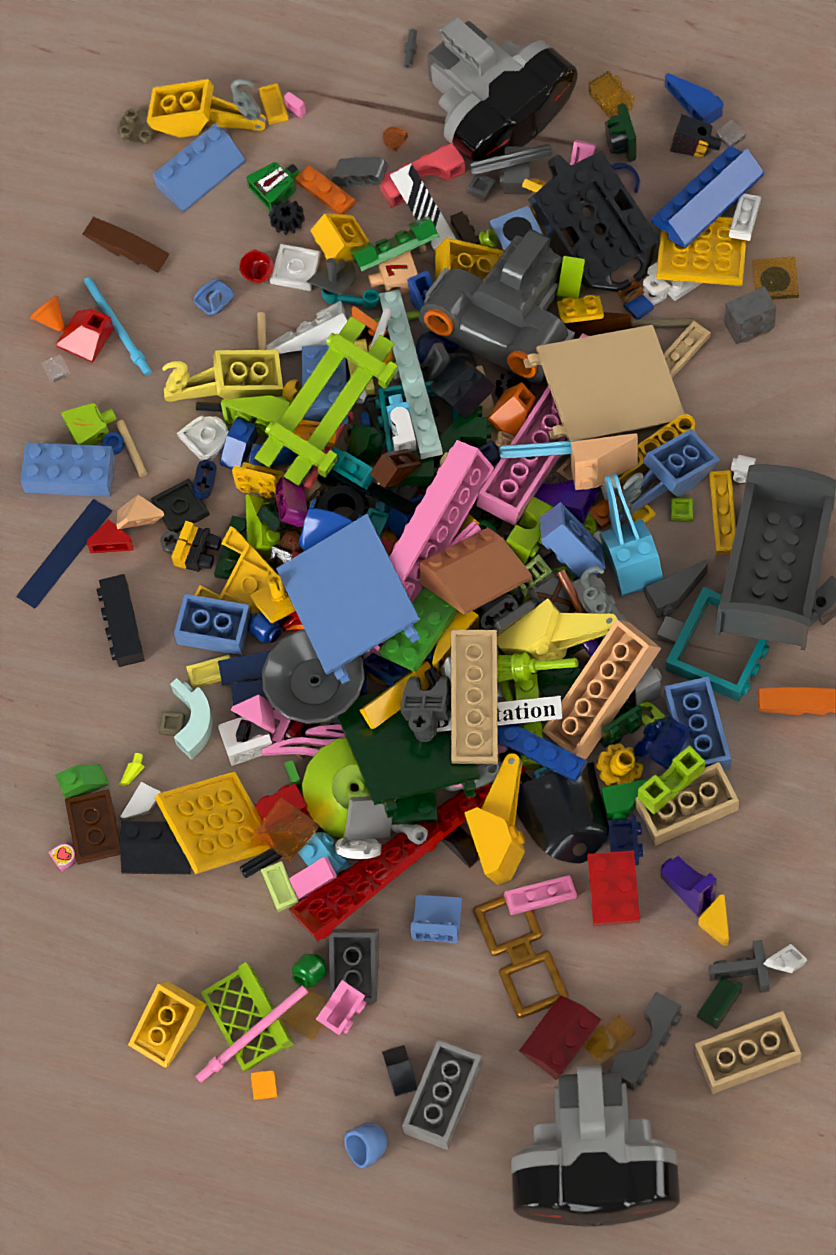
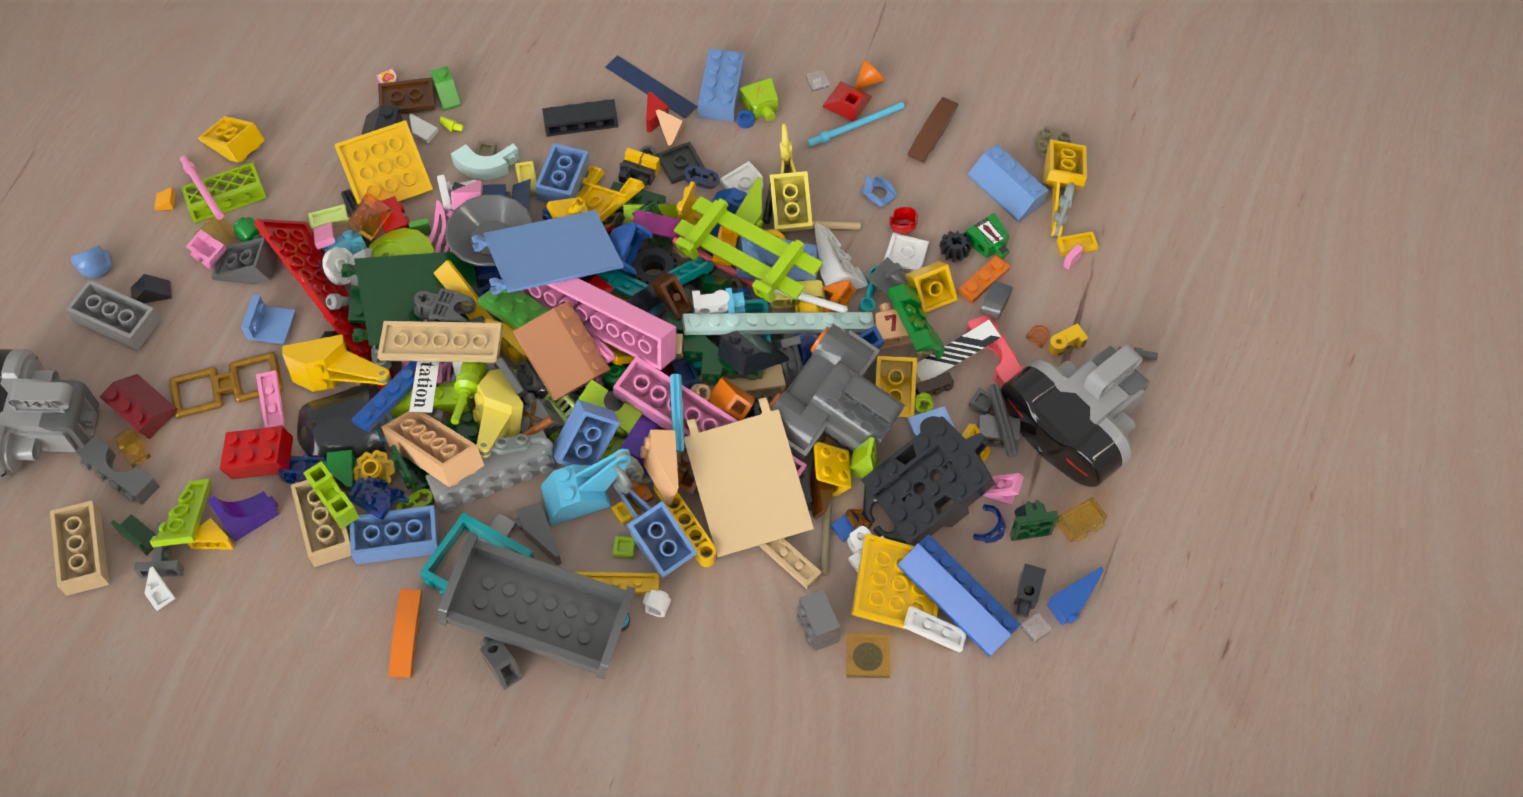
camera: 85 degrees right, 5 degrees down
(131, 448) = (739, 131): tan bar -> none
(402, 114) = (1067, 339): none -> yellow leg
(706, 943) = (185, 516): none -> lime wing

